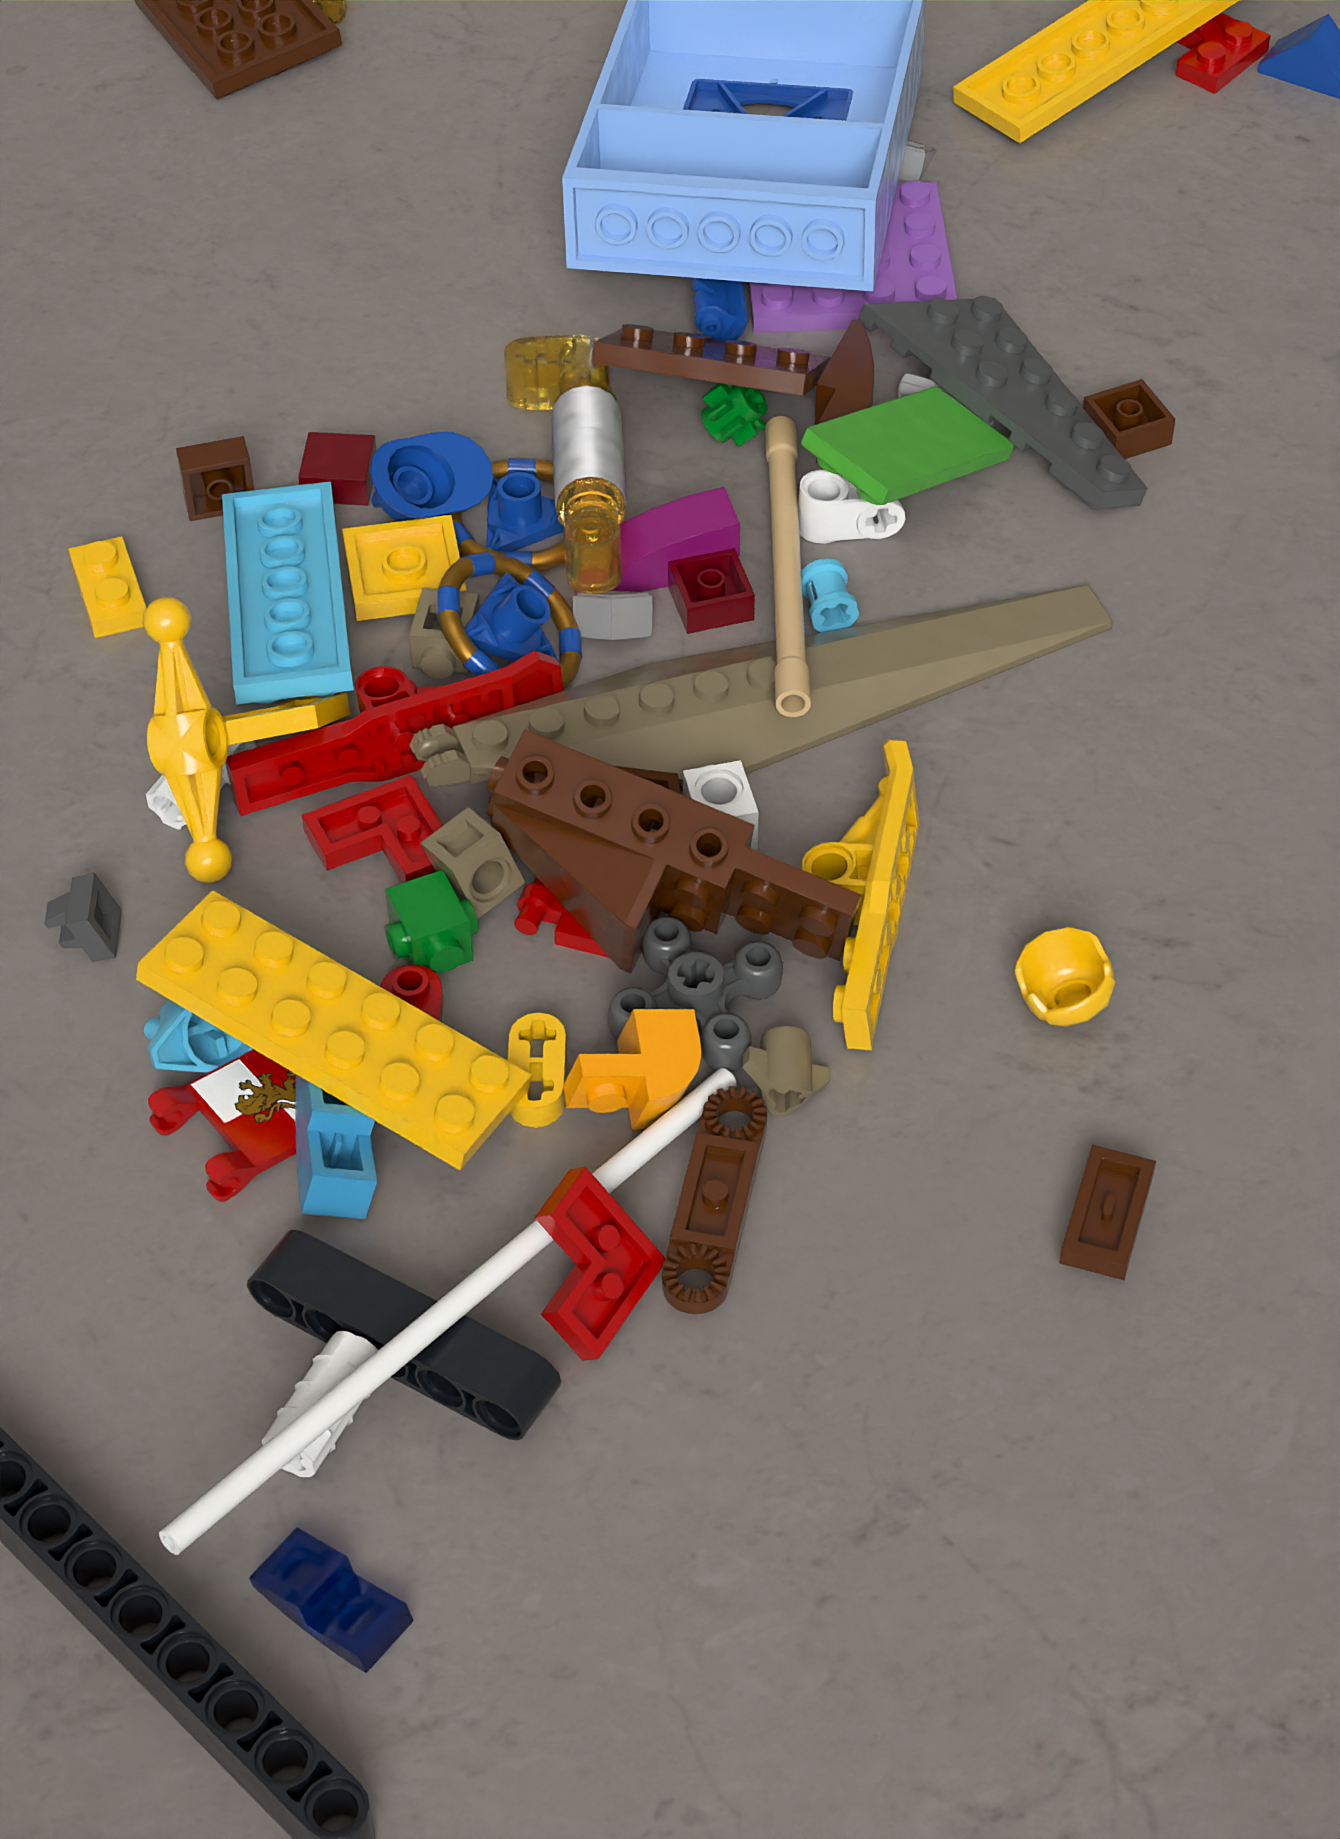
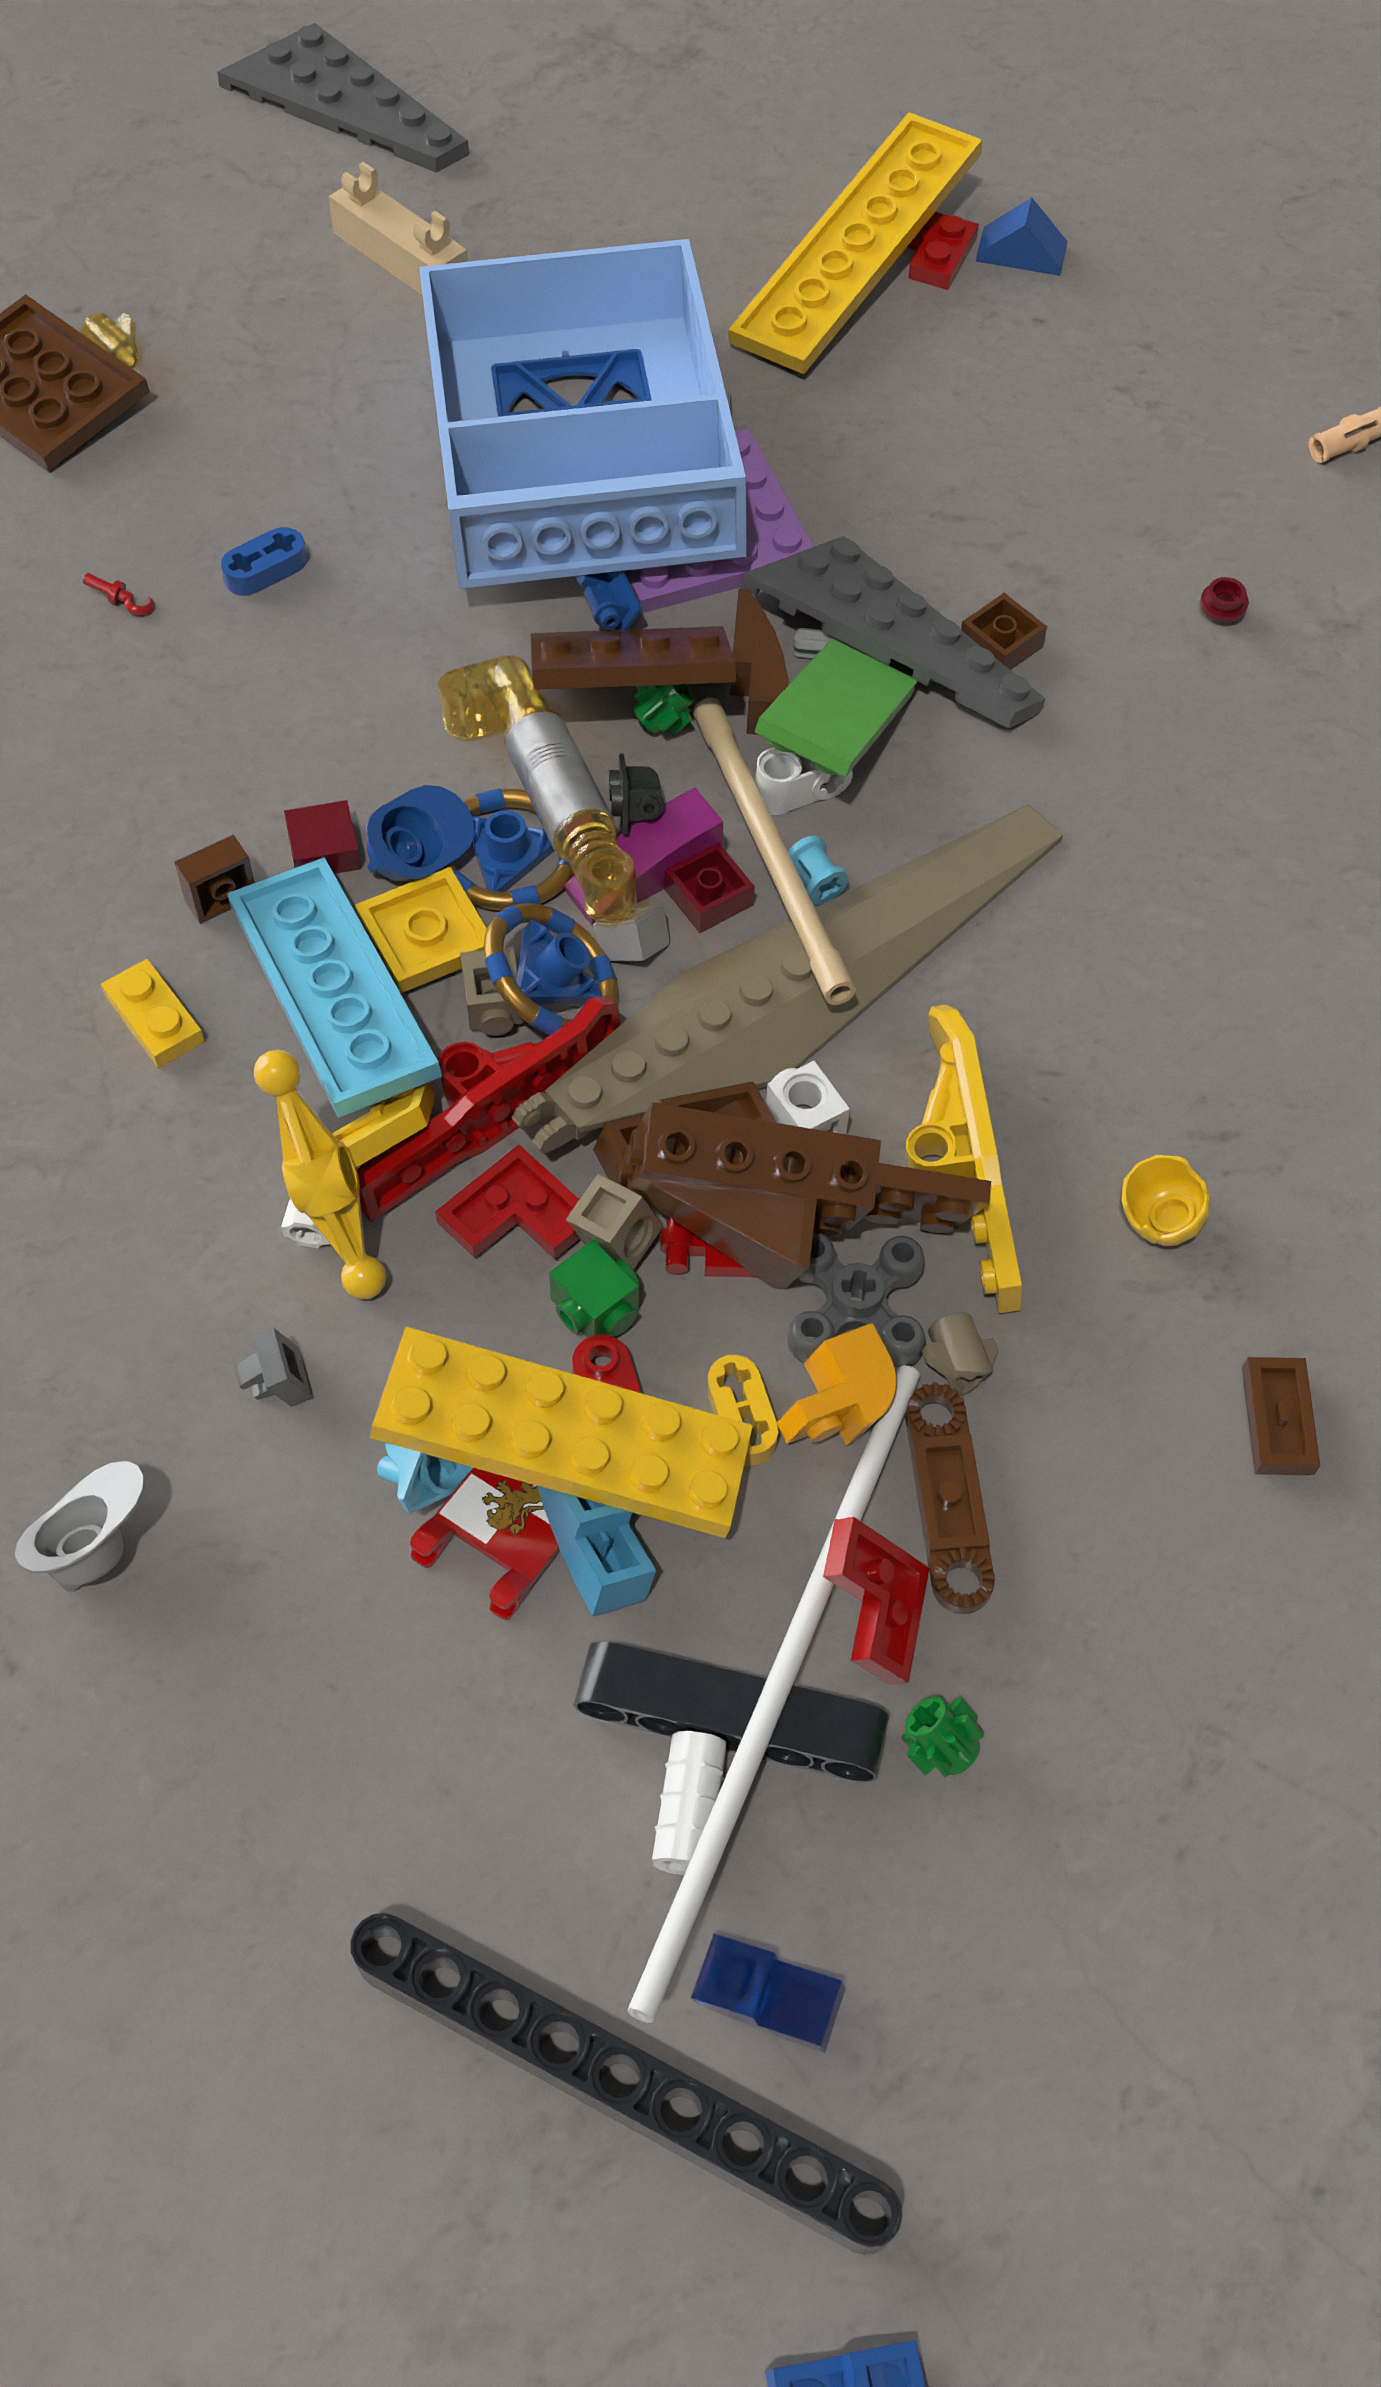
camera: 20 degrees left, 10 degrees up
(234, 216) = (116, 593): none -> red hand
(389, 213) = (264, 561): none -> blue beam
(607, 1409) = (942, 1736): none -> green gear
(661, 481) = (634, 793): none -> pearl dark grey hinge

